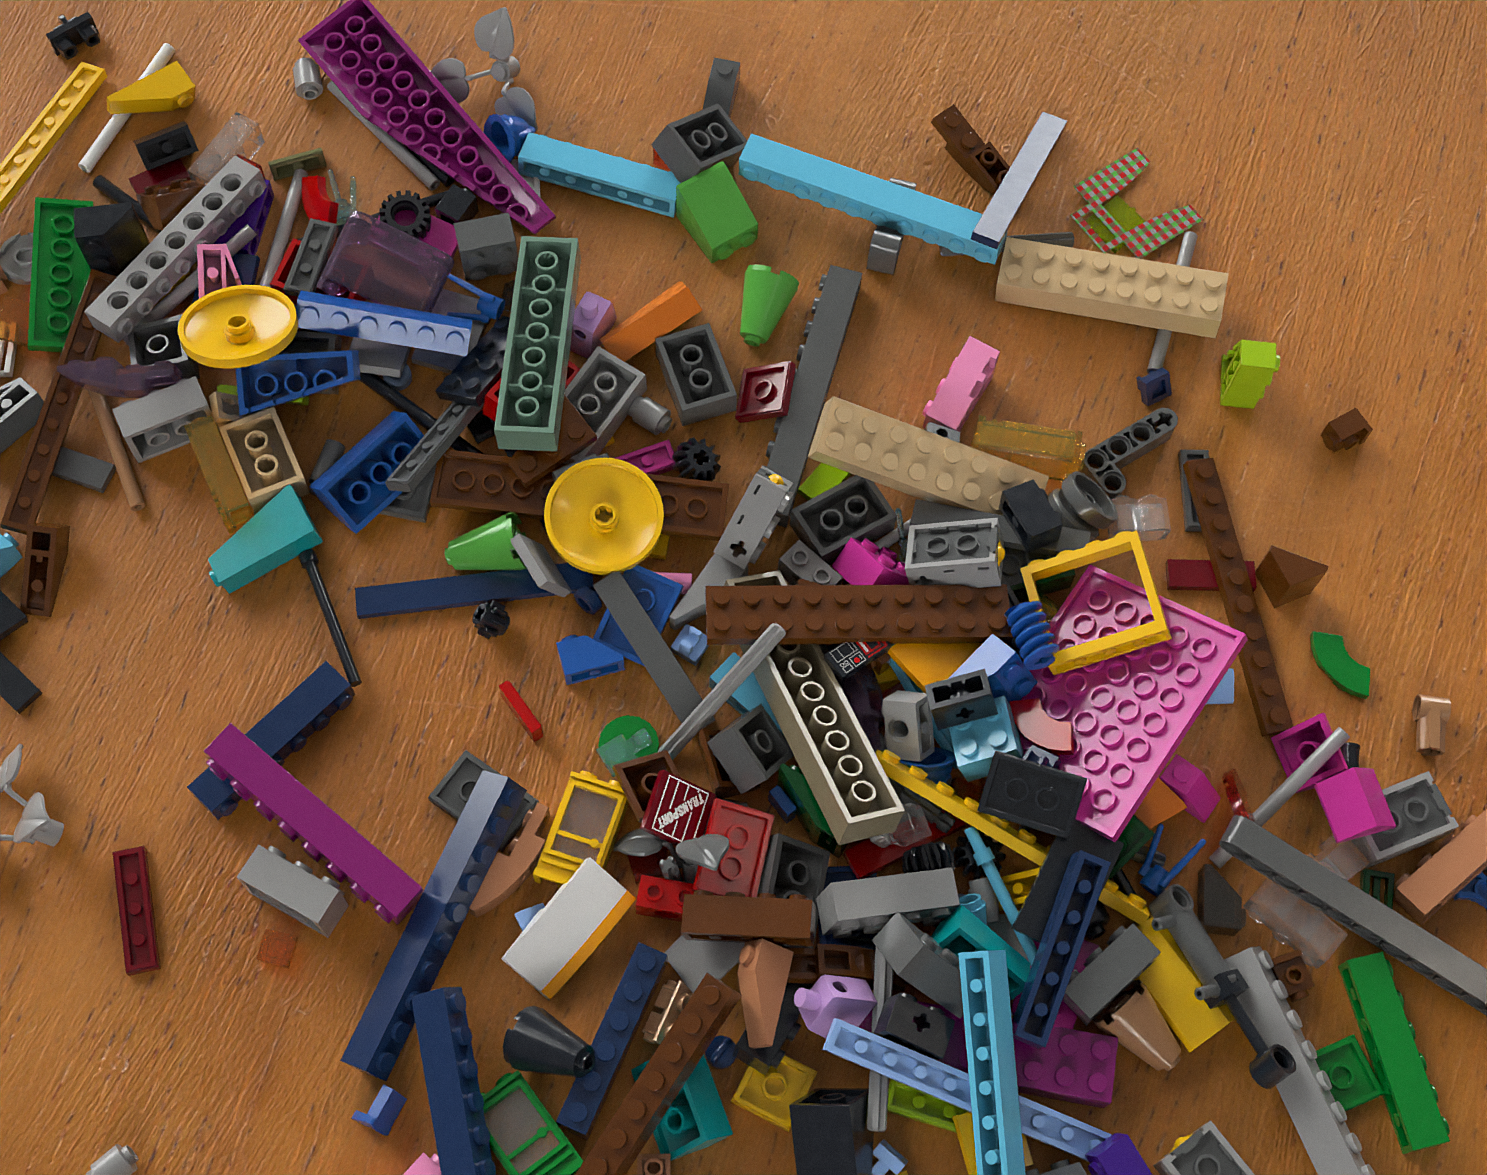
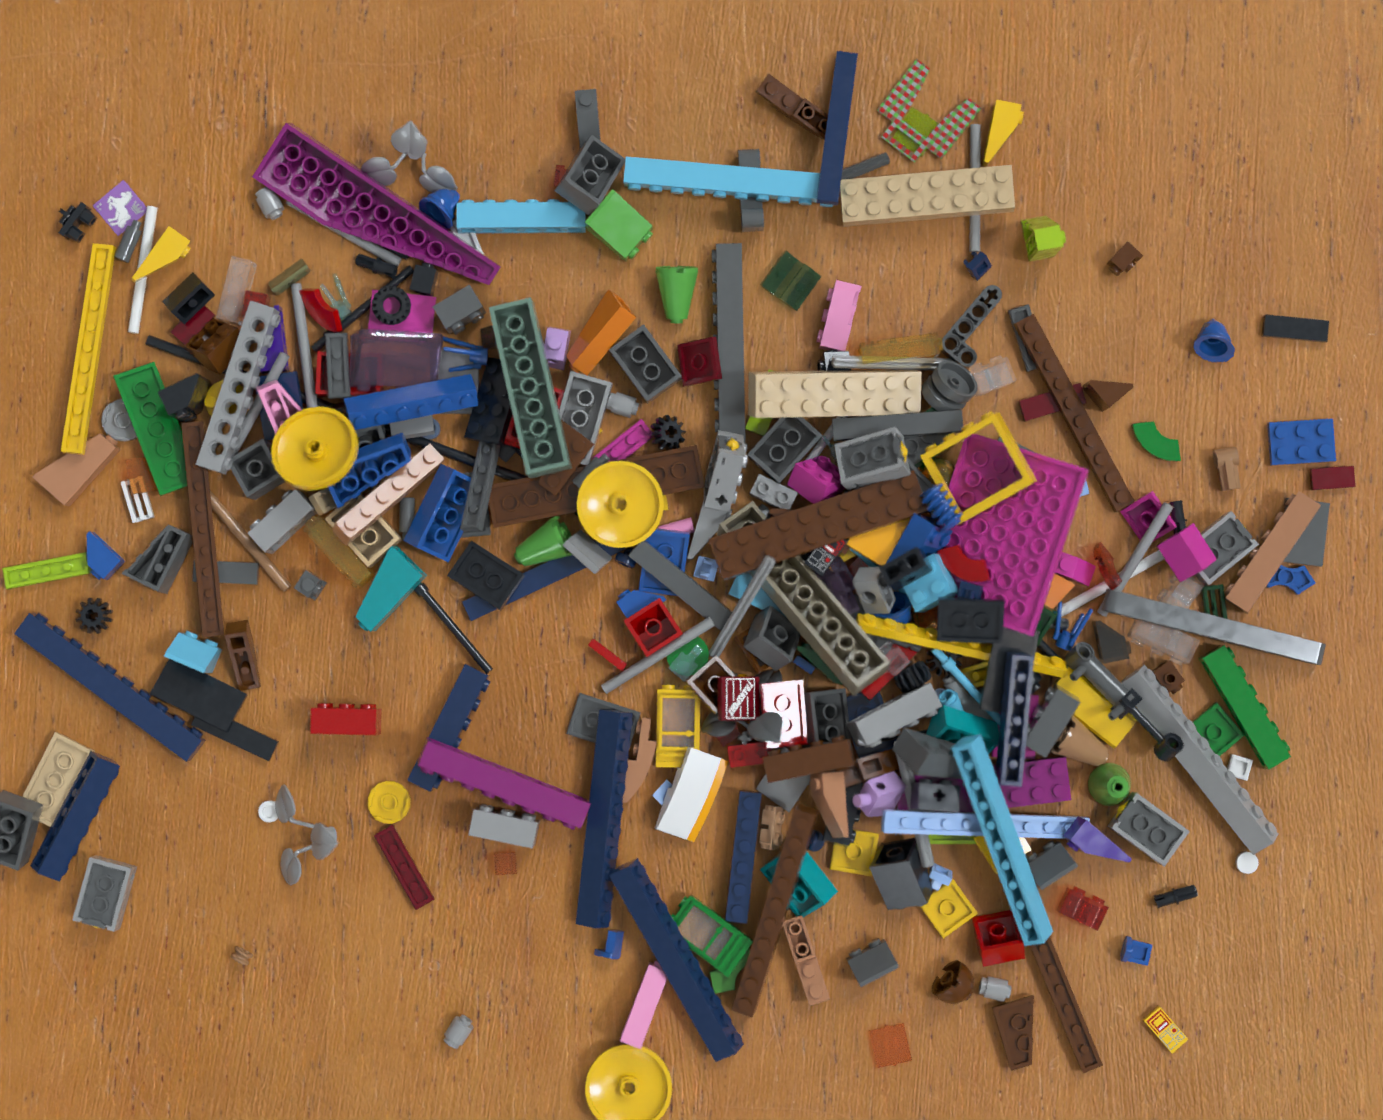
camera: 15 degrees left, 20 degrees up
(112, 379) = (234, 508): clear purple slope -> none
(124, 73) = (128, 242): none -> dark grey cylinder
(132, 40) = (120, 207): none -> medium lavender sticker
(139, 683) = (346, 719): none -> red brick
(153, 816) = (389, 802): none -> yellow tile
(168, 508) = (310, 585): none -> dark grey brick
(307, 420) = (387, 494): none -> brick
(398, 563) = (486, 575): none -> black plate
(406, 179) = (377, 266): none -> black axle
(491, 619) = (564, 596): black gear -> none
(546, 1046) = (704, 876): black cone -> none
(587, 731) = (648, 661): none -> light grey piece
(594, 689) = (653, 627): none -> red slope
(910, 339) = (790, 280): none -> clear green slope
(952, 433) = (930, 364): none -> light grey axle
(1031, 515) = (918, 413): black brick -> none
(1171, 1105) = (1102, 783): none -> bright green cone
(1216, 830) = (1101, 588): none -> white piece
(1227, 240) = (1003, 122): none -> yellow slope
(1371, 1138) = (1239, 766): none -> white tile
(1444, 563) = (1214, 342): none -> blue piece

